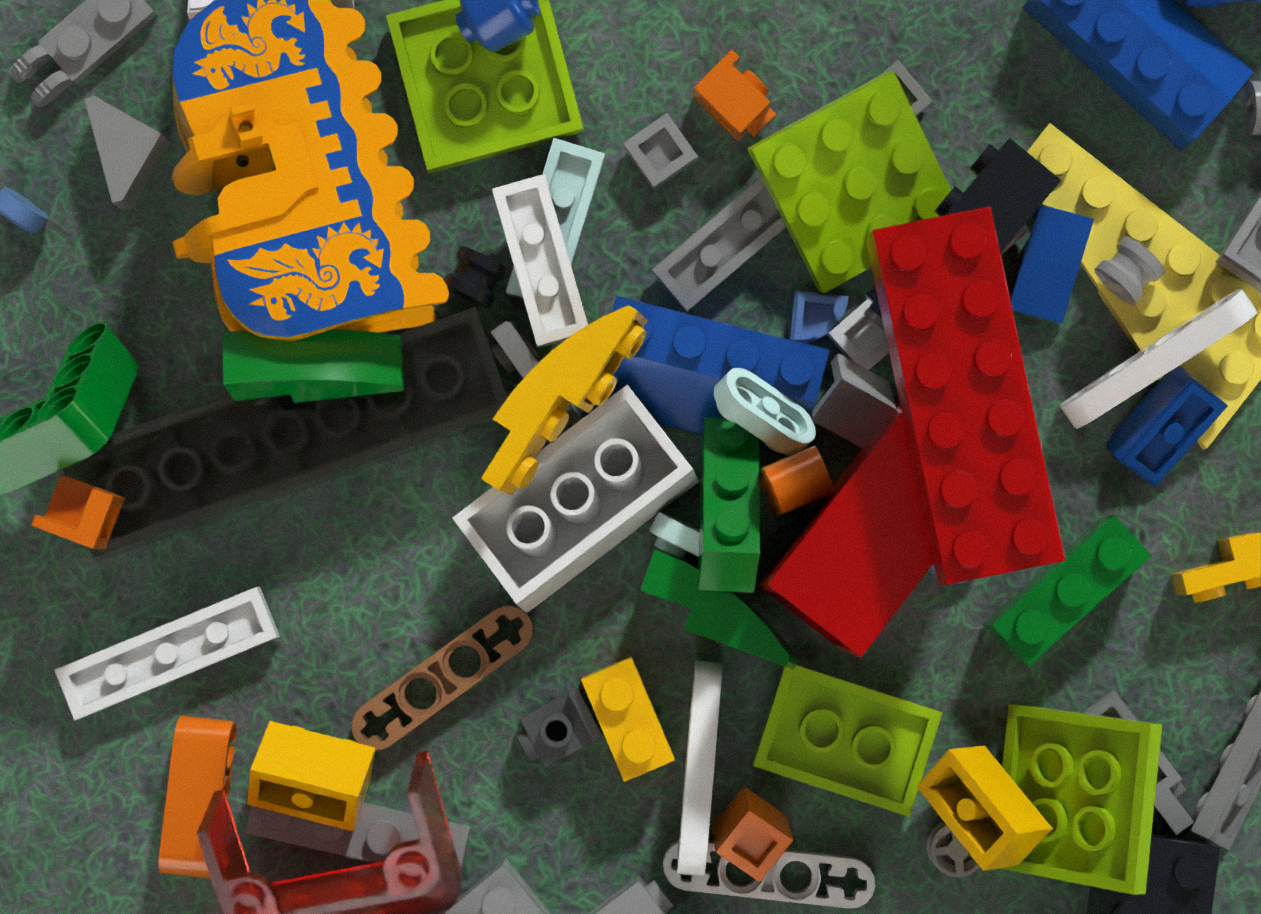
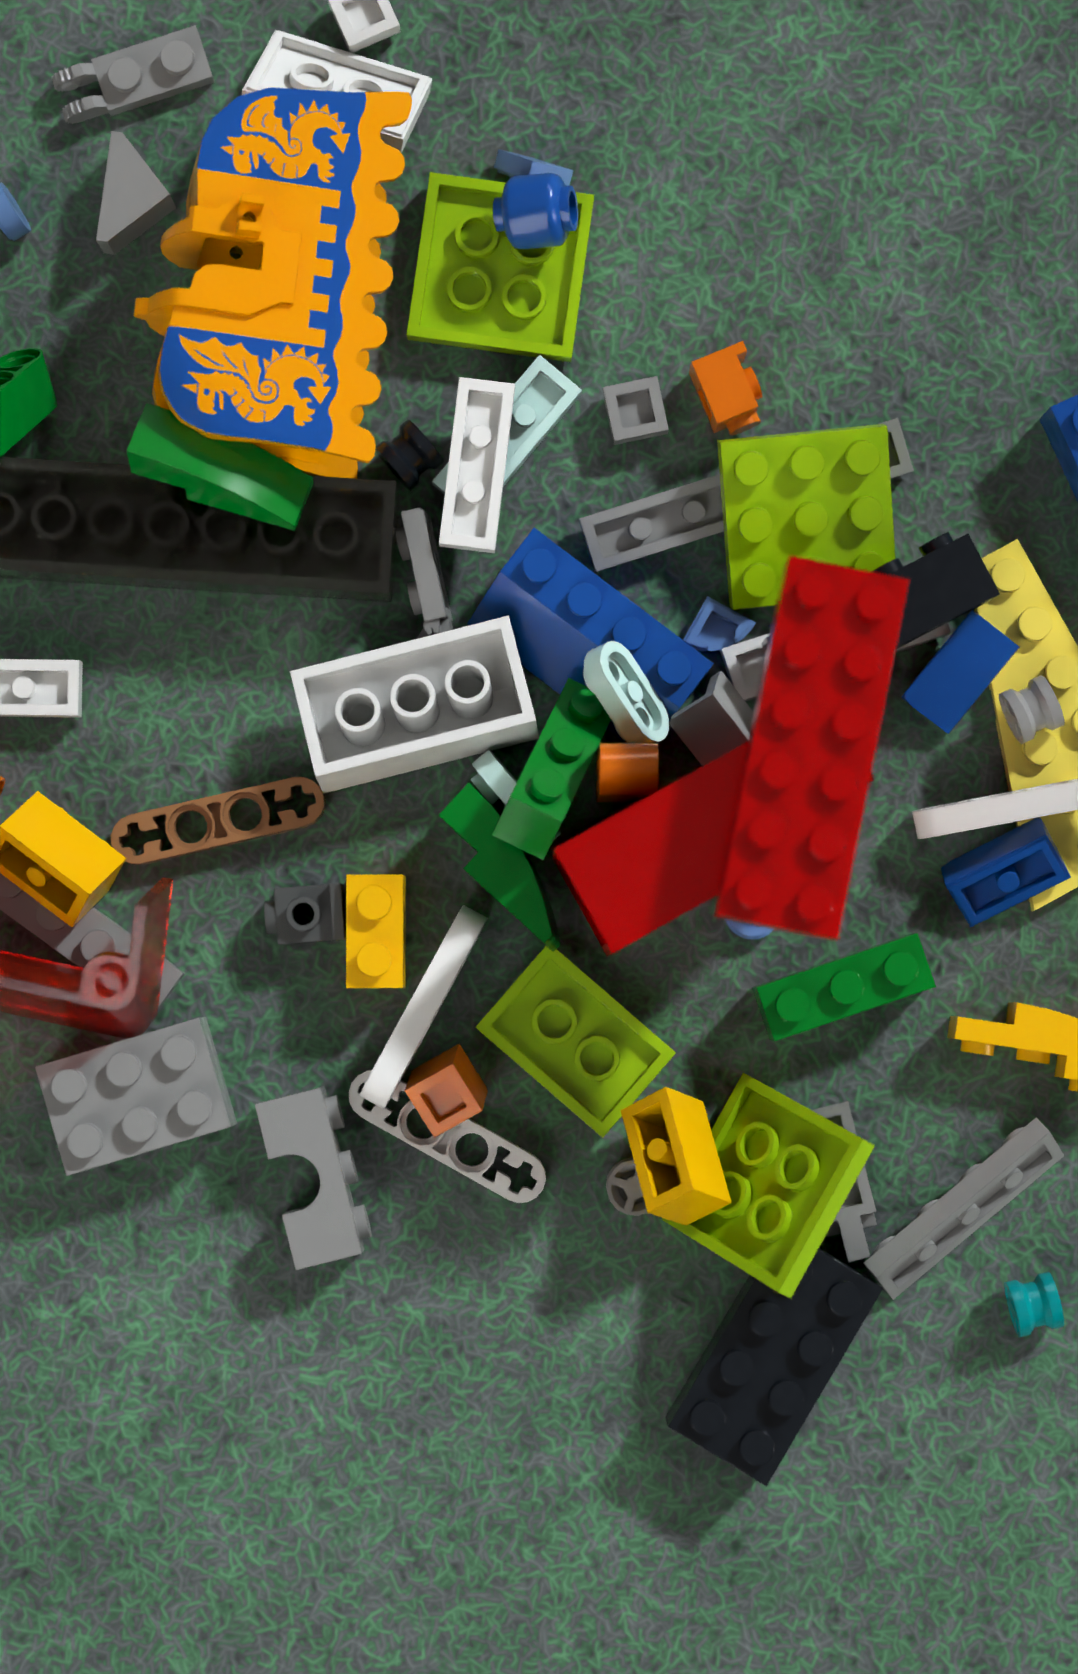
camera: 20 degrees right, 0 degrees up
(574, 373) = (459, 580): yellow slope -> none

